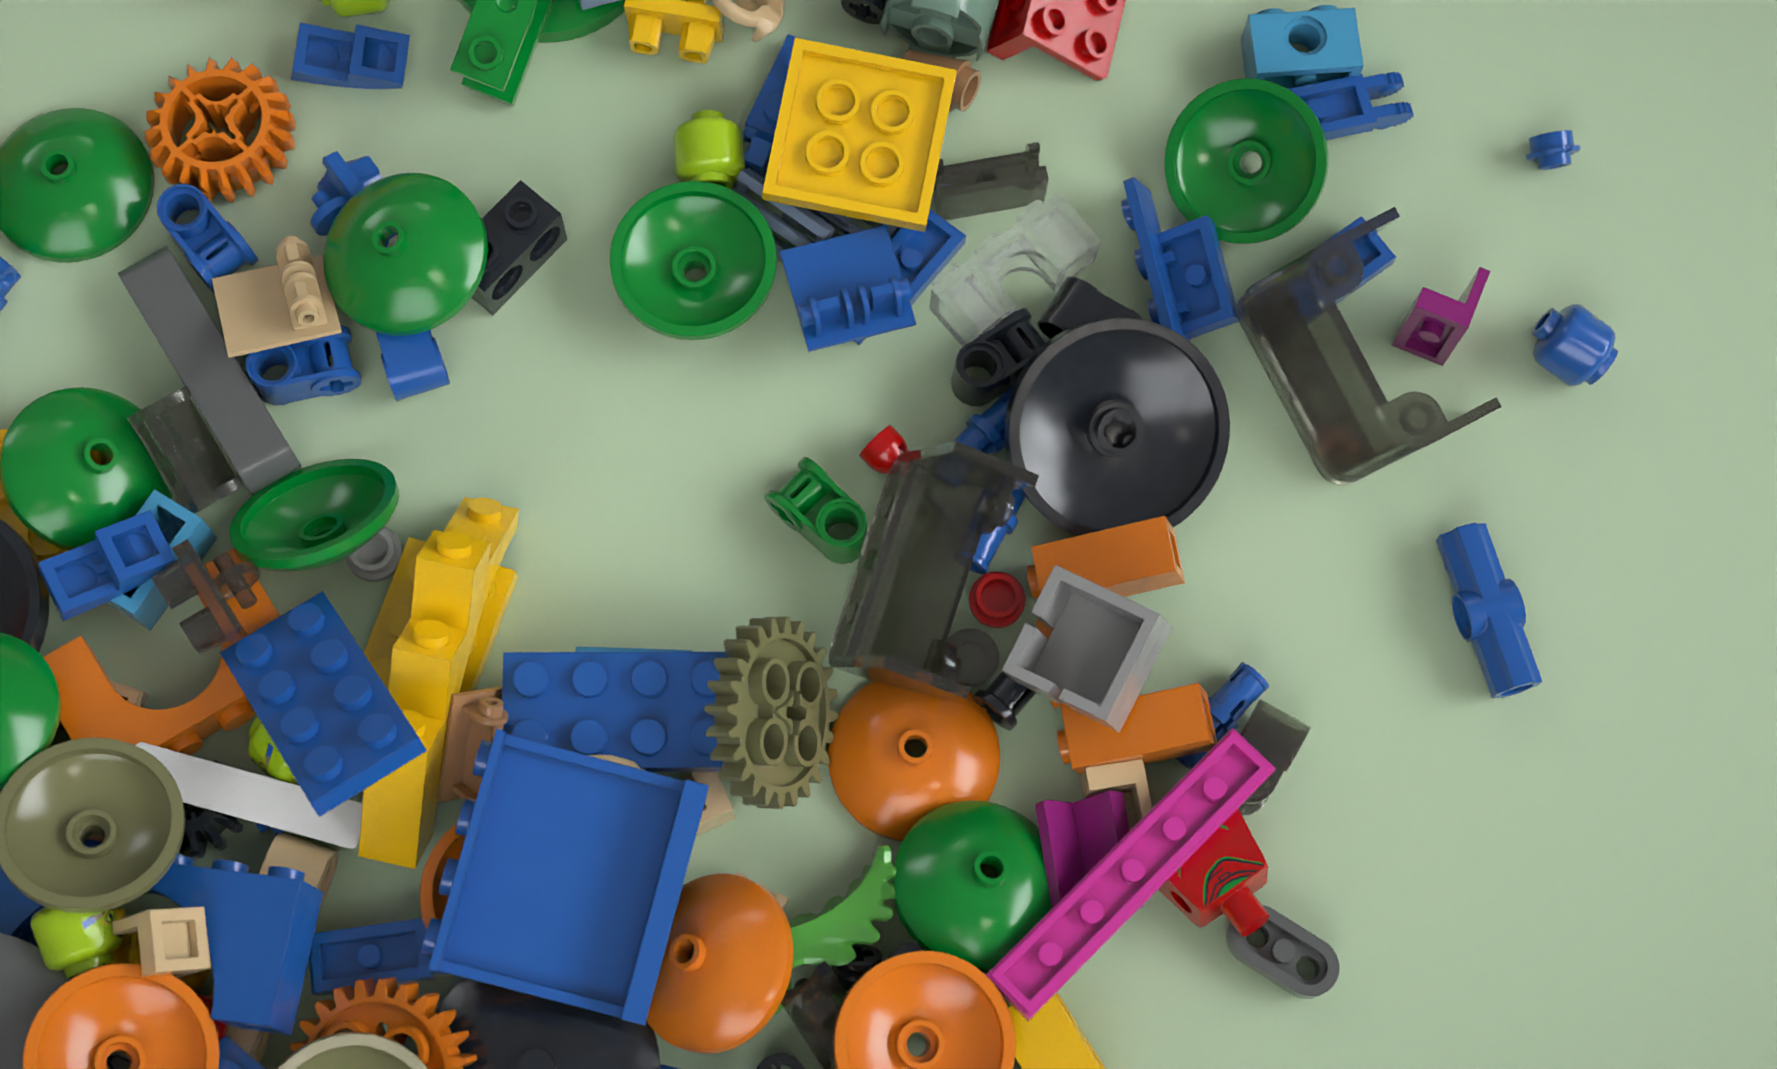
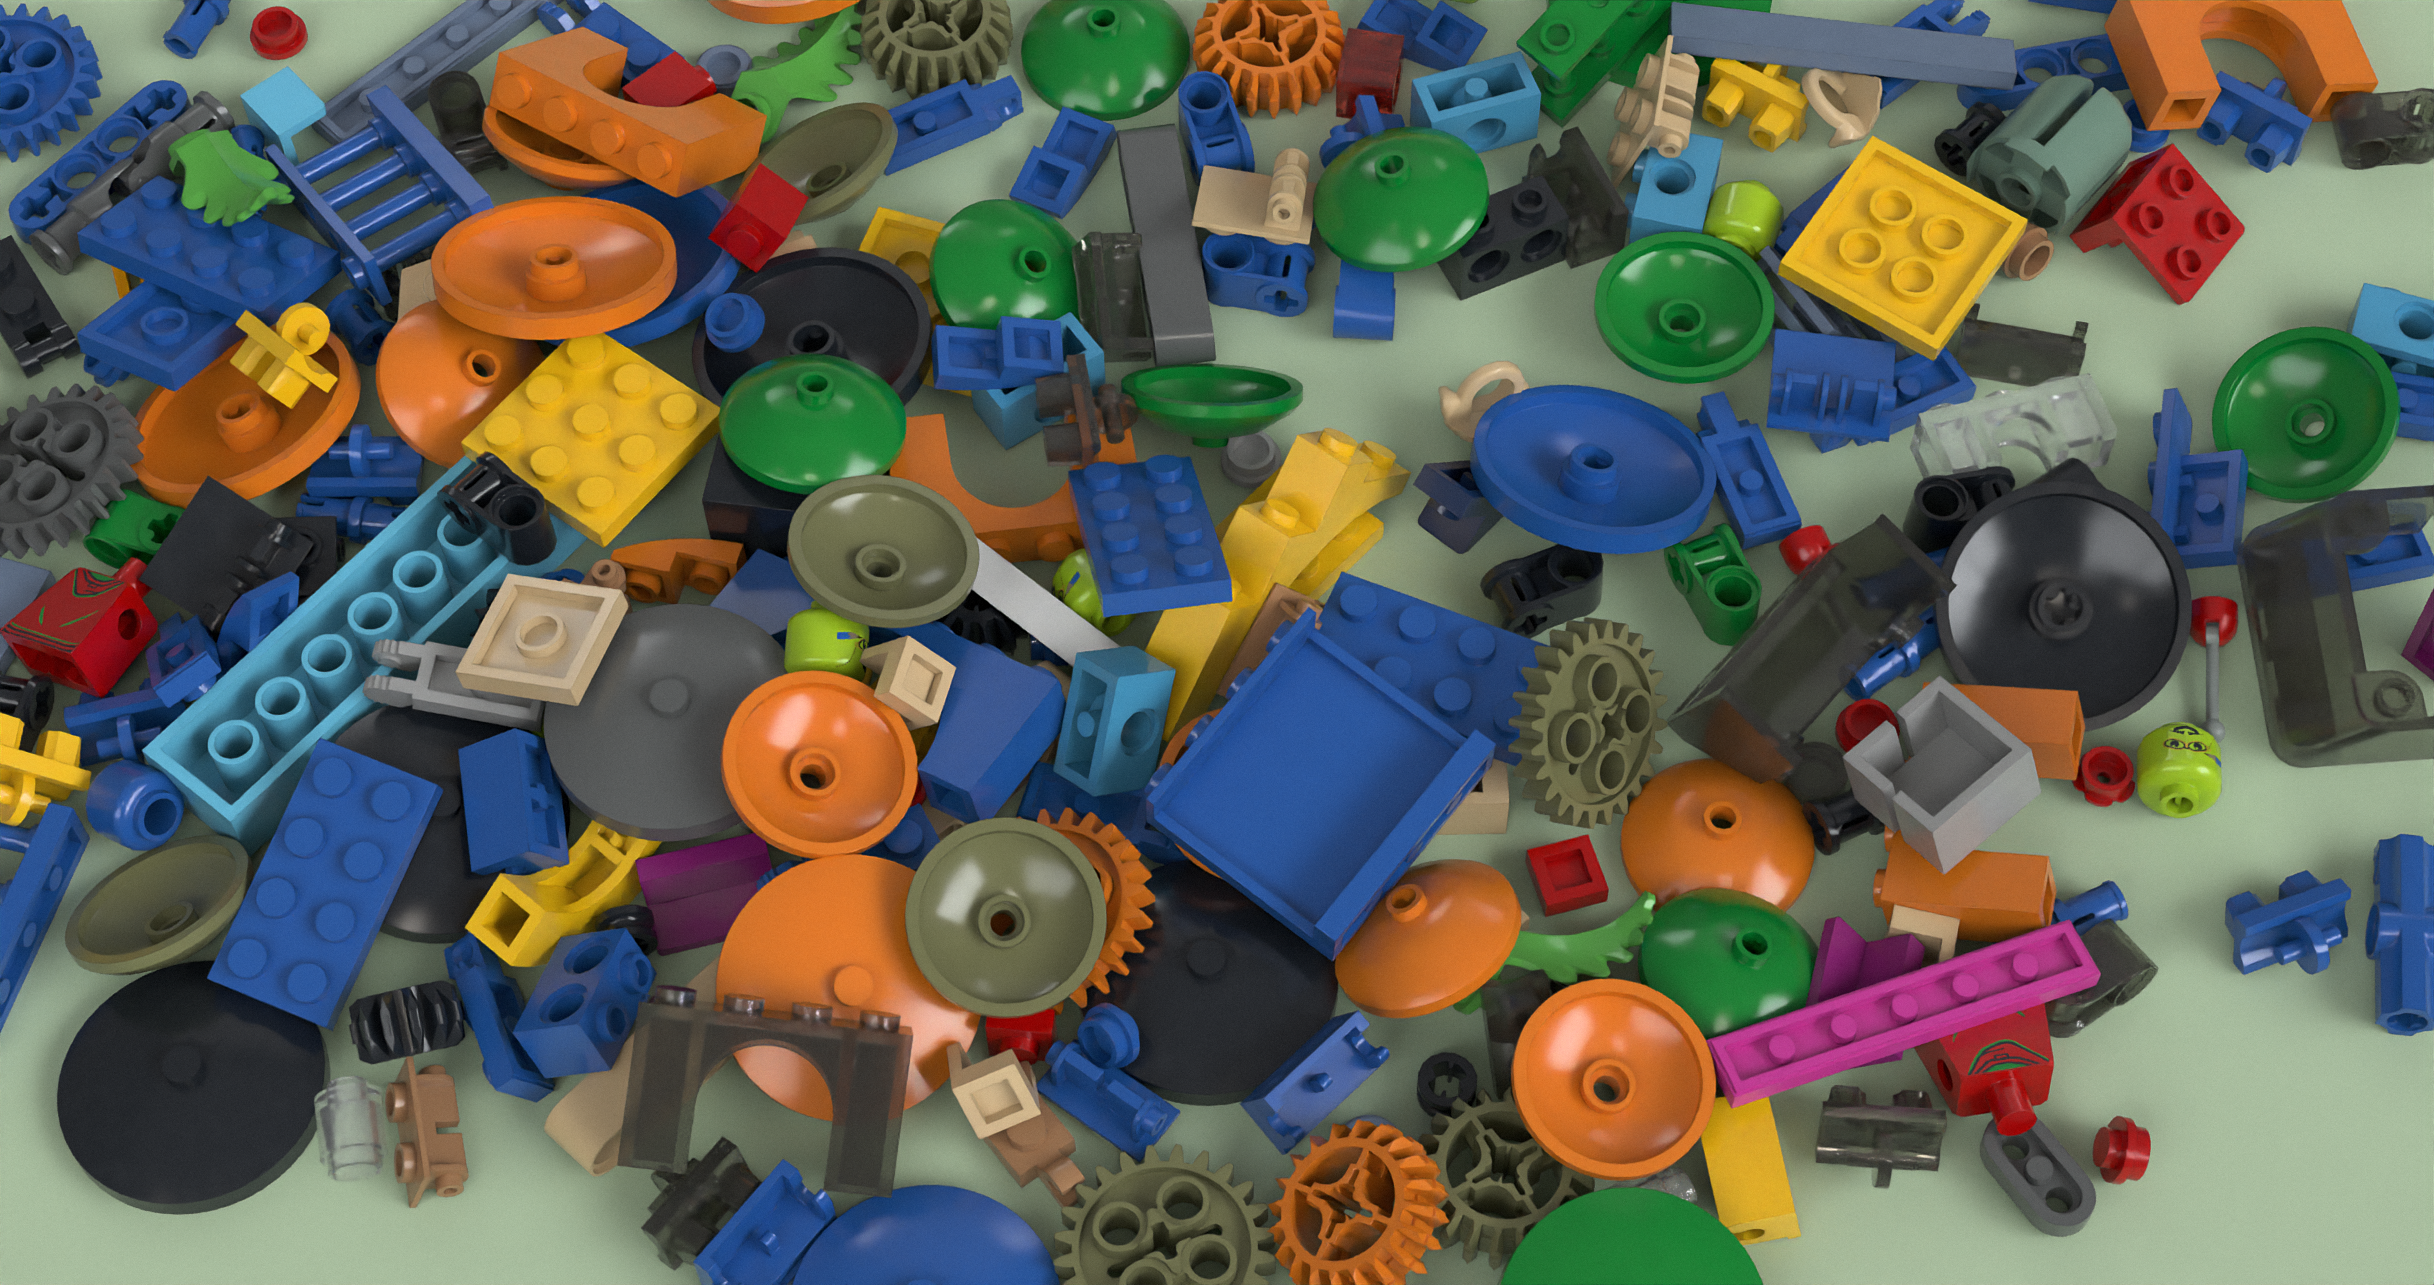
camera: 30 degrees right, 15 degrees down
(82, 320) = (1066, 163): none -> blue slope
(322, 123) = (1369, 66): none -> clear red brick
(363, 882) = (1114, 720): none -> dark azure brick
(432, 125) = (1480, 103): none -> dark azure brick
(558, 178) = (1587, 195): none -> clear smoke hinge
(560, 424) = (1463, 412): none -> tan piece
(577, 518) = (1456, 507): none -> dark blue slope
(592, 73) = (1655, 109): none -> tan hinge
(631, 114) = (1673, 190): none -> dark azure brick
(676, 453) = (1592, 469): none -> blue dish
(676, 583) = (1542, 592): none -> black piece
(803, 844) = (1566, 875): none -> red plate
(804, 398) = (1746, 475): none -> blue hinge
(1151, 980) = (1880, 1136): none -> clear smoke hips
(1215, 556) = (2112, 764): none -> red plate
(1240, 387) = (2213, 626): none -> hinge
(1261, 535) = (2179, 767): none -> lime head
(1340, 903) = (2121, 1150): none -> red plate
(1404, 647) = (2294, 928): none -> blue hips

